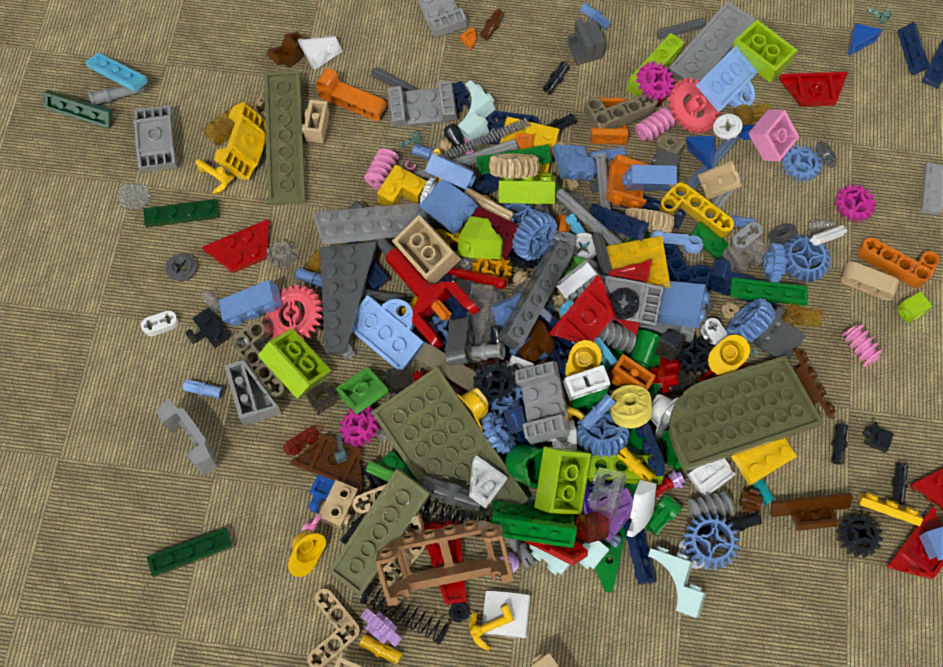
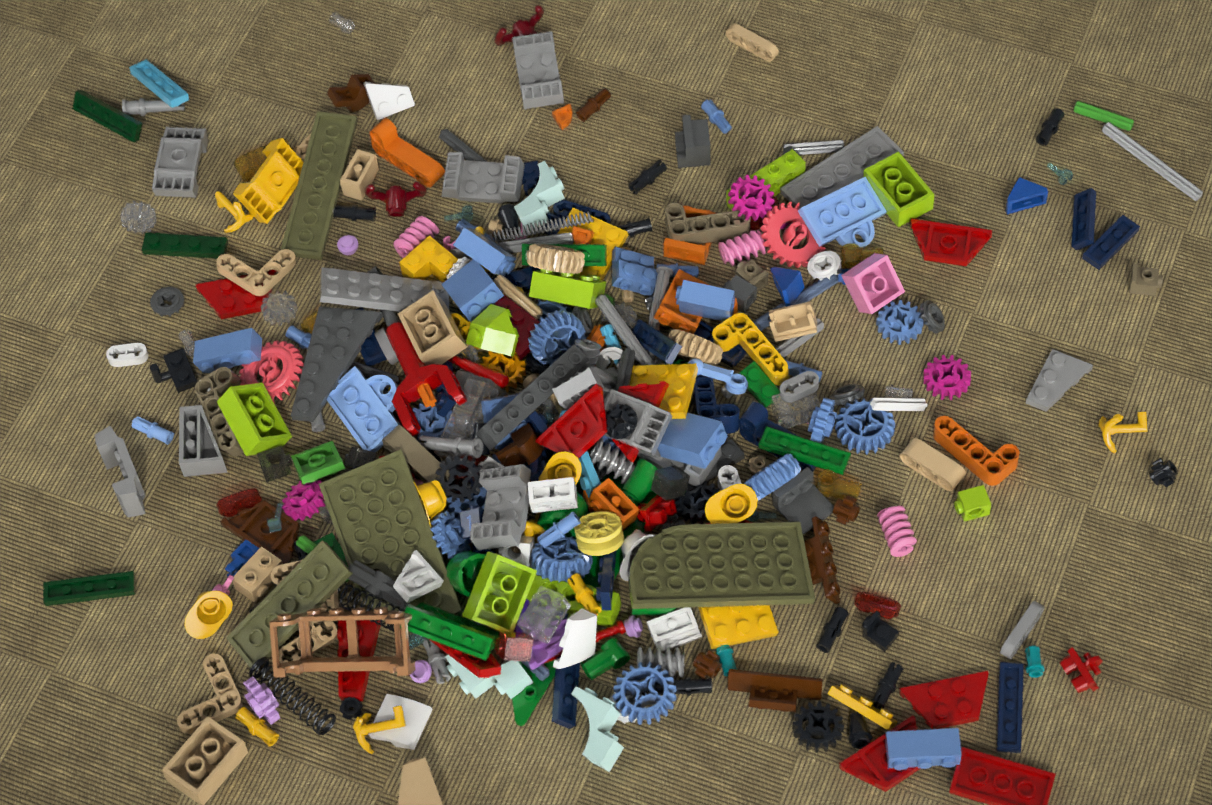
camera: 20 degrees right, 10 degrees down
(253, 230) = (256, 277): none -> tan beam
(321, 155) = (354, 213): none -> black pin
(323, 185) = (347, 245): none -> lavender plate
(353, 136) = (396, 197): none -> dark red piece
(380, 261) = (386, 346): none -> light grey beam
(459, 341) = (435, 429): dark grey beam -> none
(816, 335) = (846, 510): none -> reddish brown gear
(868, 413) = (871, 602): none -> clear red plate
(894, 533) = (858, 732): none -> black cone

